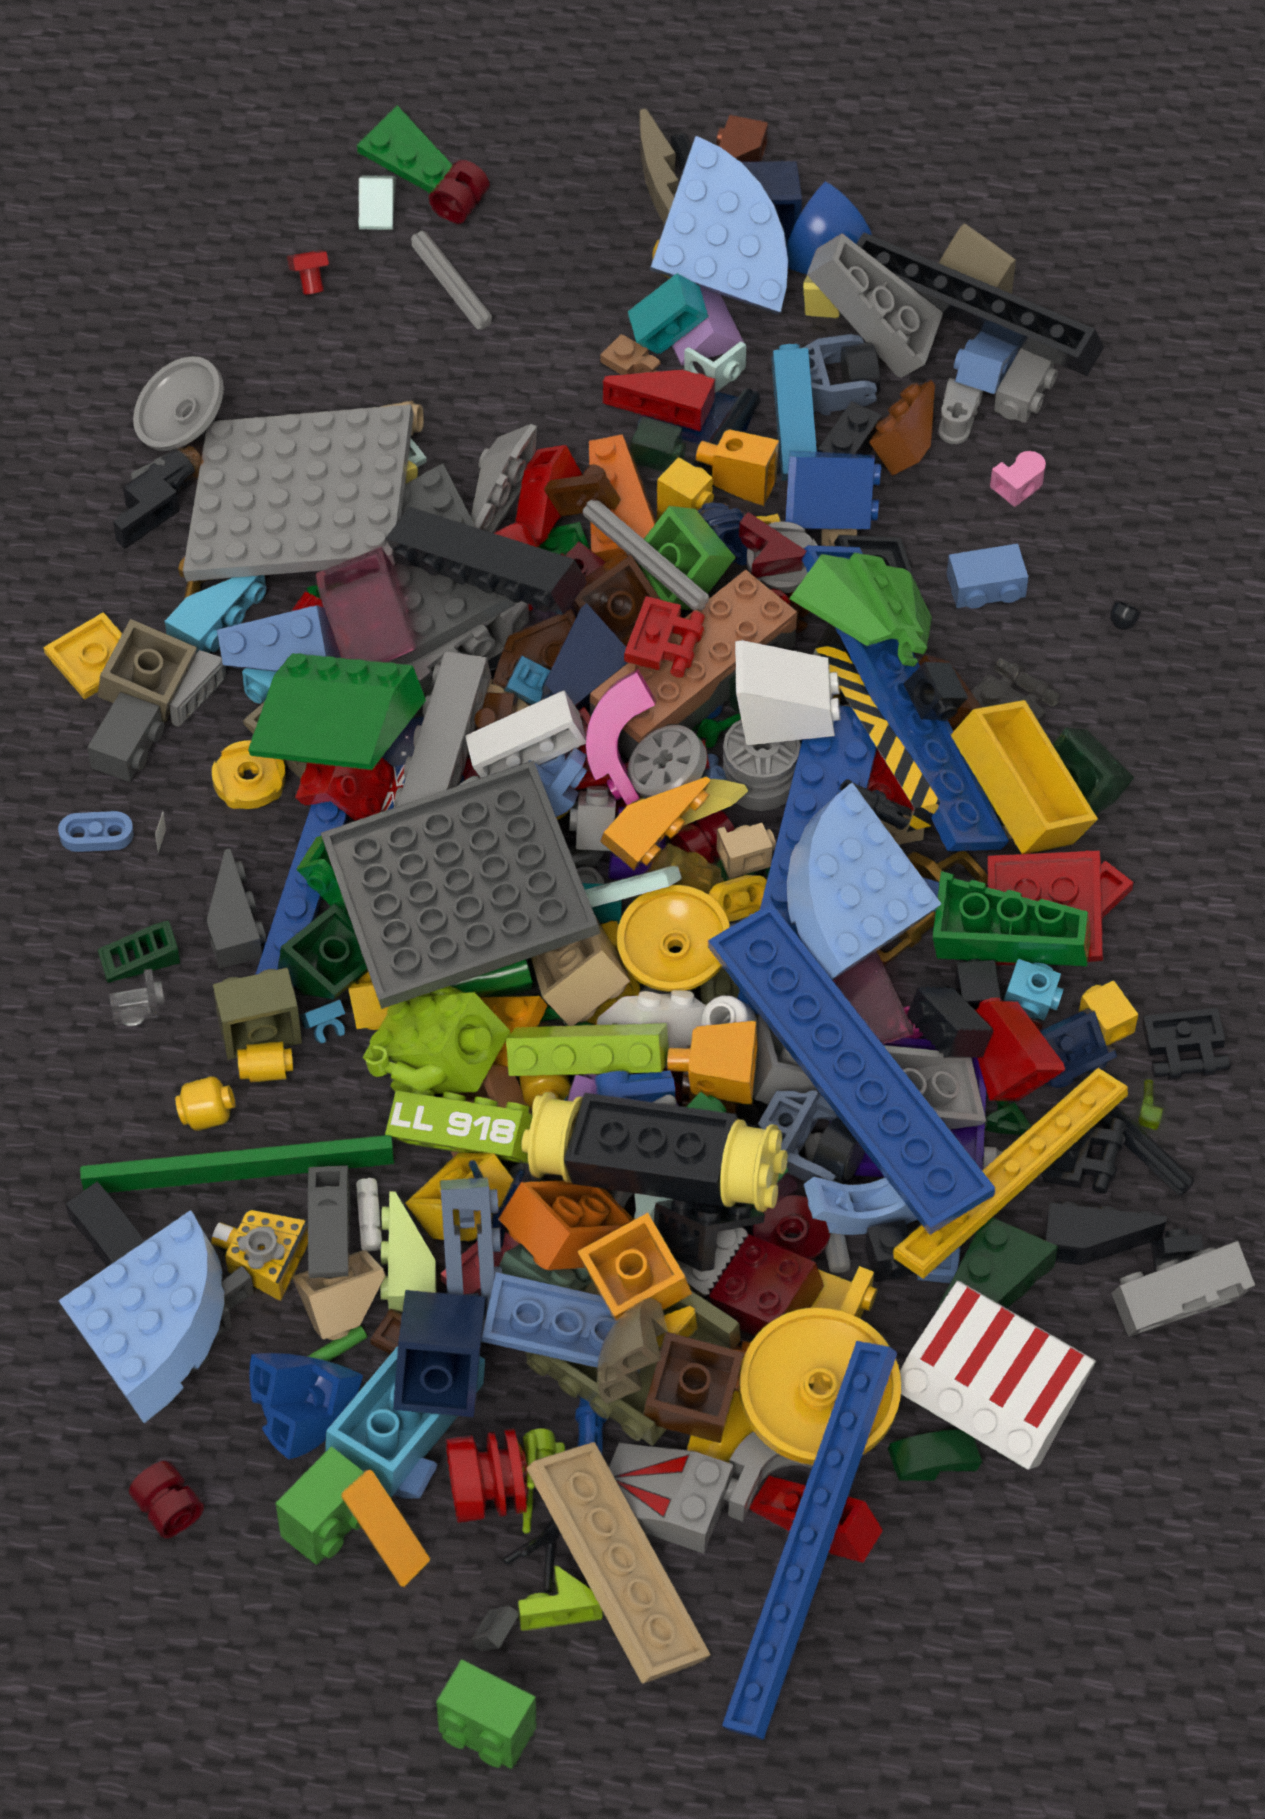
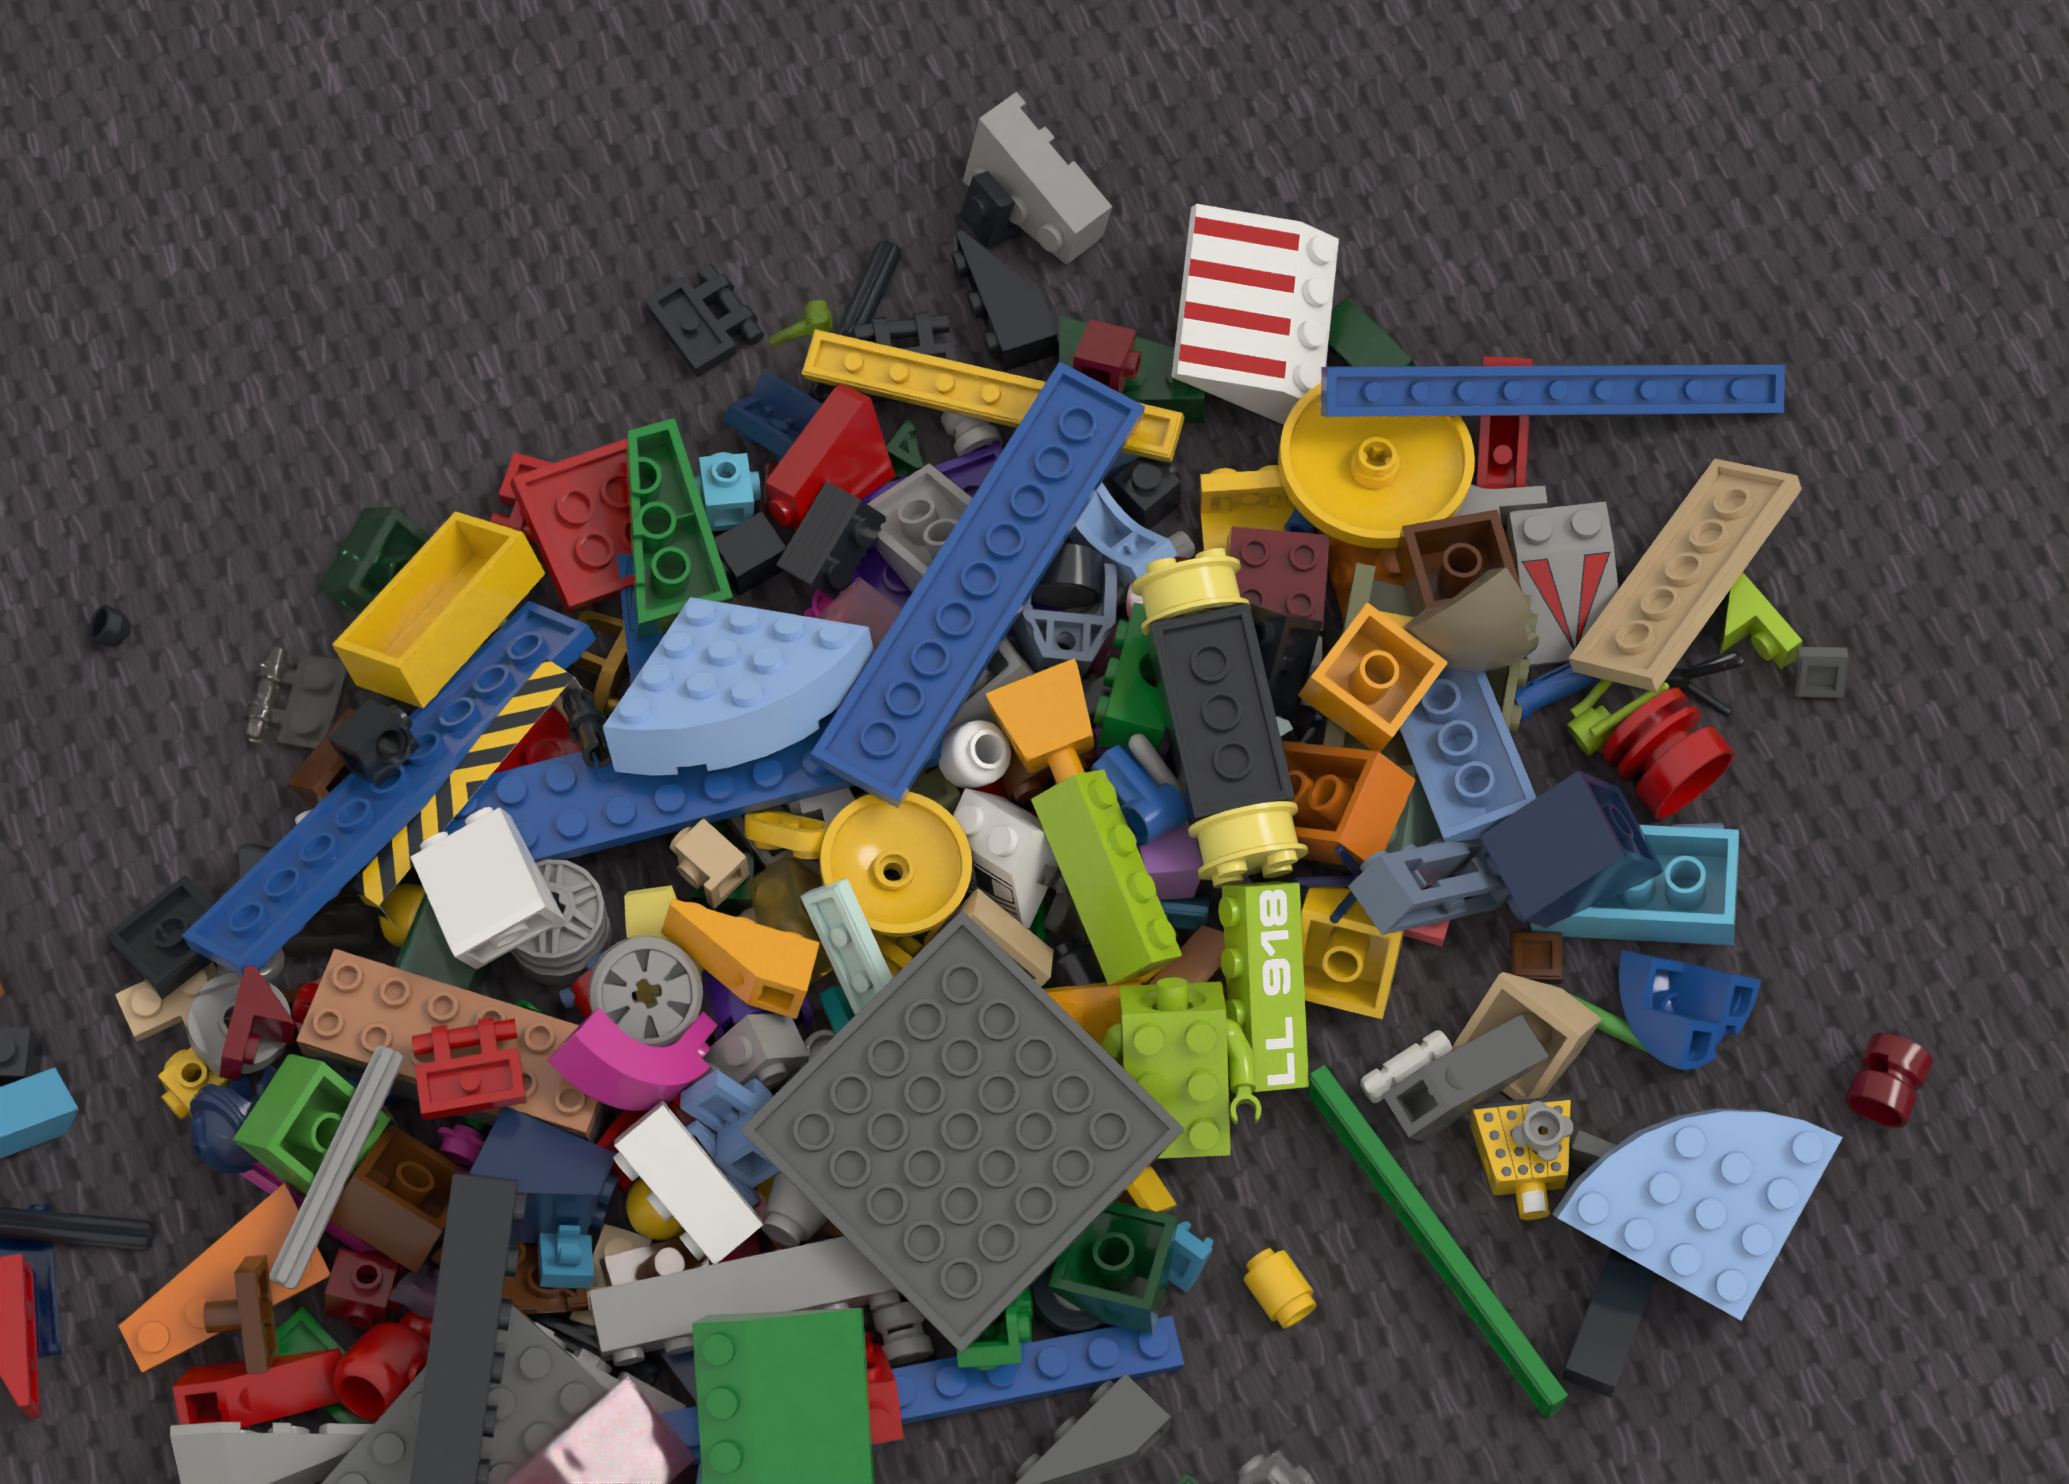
camera: 115 degrees left, 10 degrees up
(205, 1103) = (1375, 1323): yellow head -> none
(257, 1010) = (1231, 1317): olive brick -> none
(313, 1511) = (1805, 898): bright green brick -> none
(385, 1527) = (1791, 821): light orange piece -> none
(407, 1256) = (1449, 982): yellowish green slope -> none
(486, 1715) = (1932, 616): bright green brick -> none
(657, 444) = (91, 1300): clear green brick -> none
(683, 487) = (181, 1203): yellow brick -> none
(742, 464) = (87, 1164): light orange torso -> none
(832, 490) = (91, 1033): blue slope -> none
(868, 602) = (286, 872): bright green panel -> none
(987, 576) = (126, 803): medium blue brick -> none
(991, 1235) = (1108, 354): none -> dark red brick
(1113, 1011) = (704, 405): yellow brick -> none

